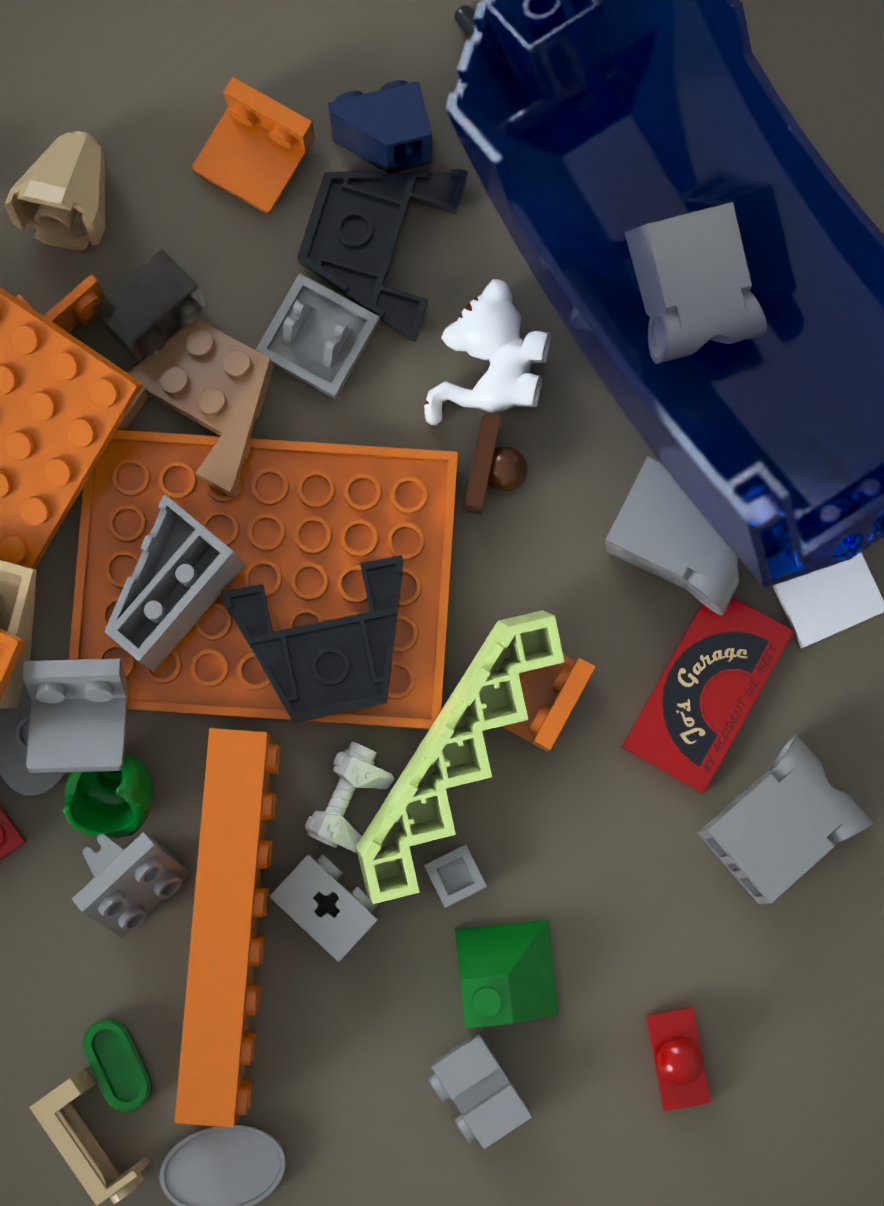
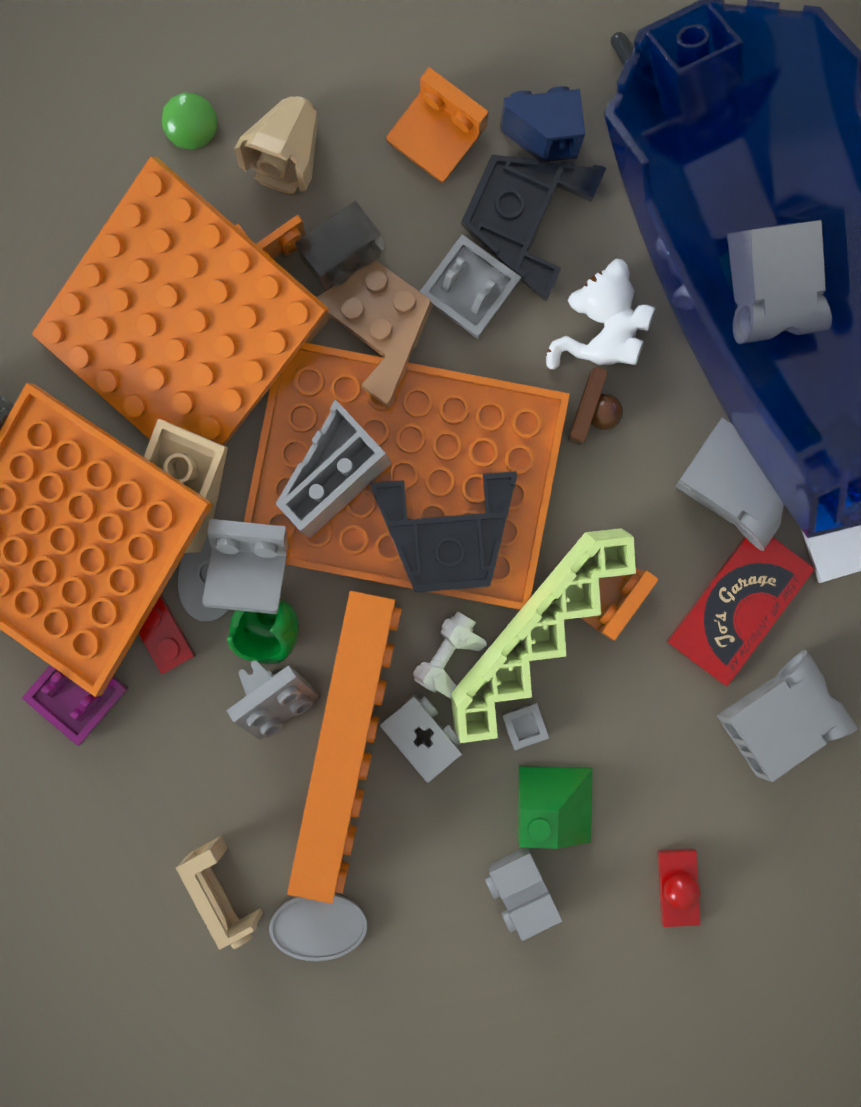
camera: 10 degrees right, 5 degrees up
(117, 1064) = (246, 836): green tile -> none

